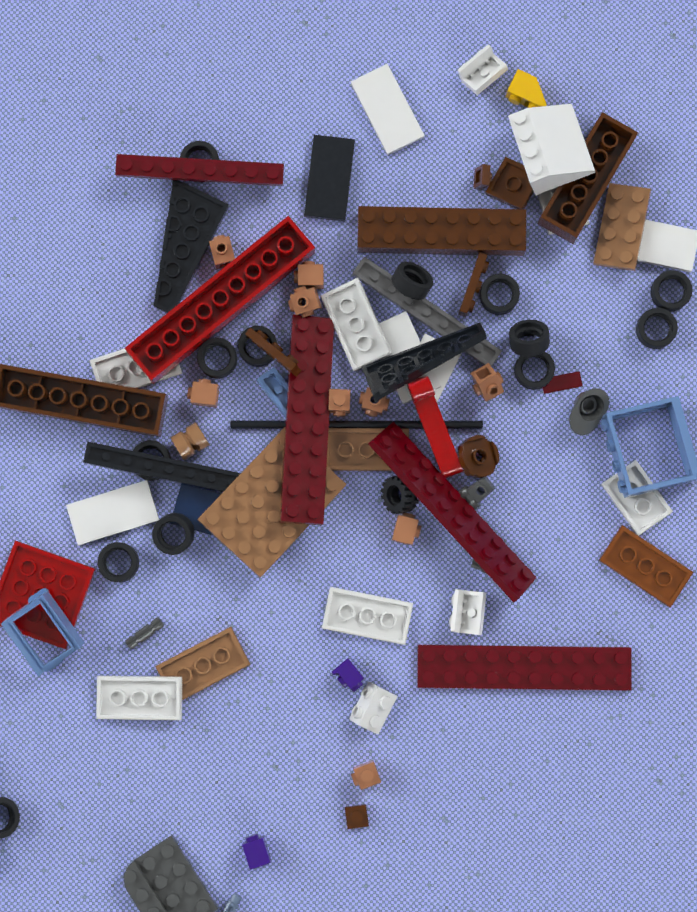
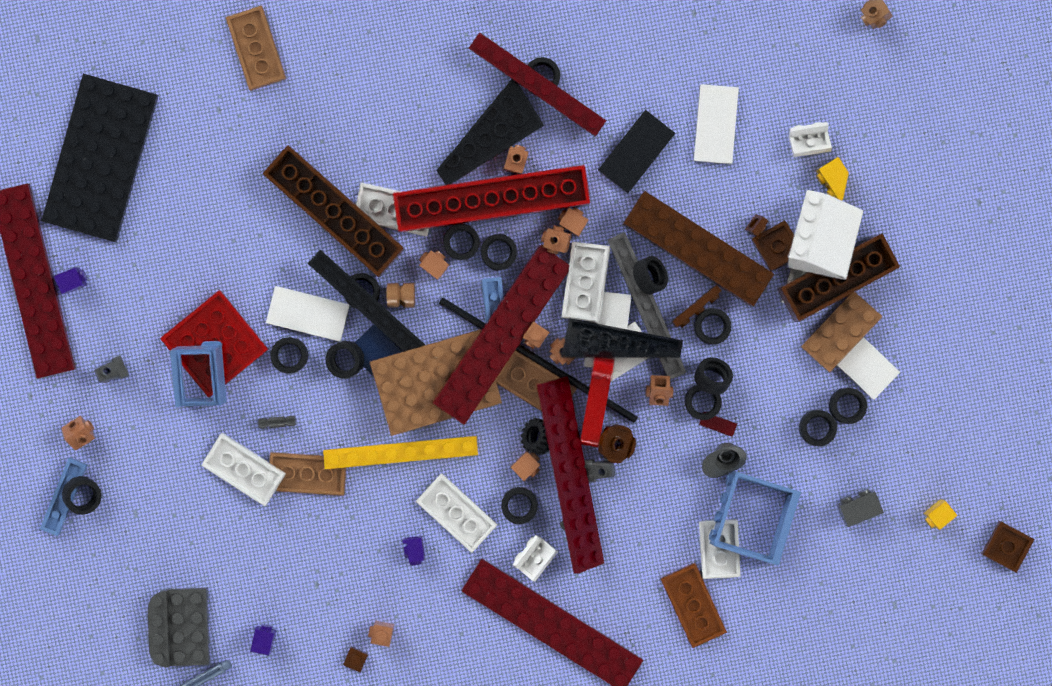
camera: 25 degrees right, 5 degrees up
(274, 351) = (508, 266): reddish brown plate -> none
(279, 590) = (400, 452): none -> yellow plate
(373, 707) = (417, 585): white bracket -> none
(424, 587) = (533, 509): none -> black tyre

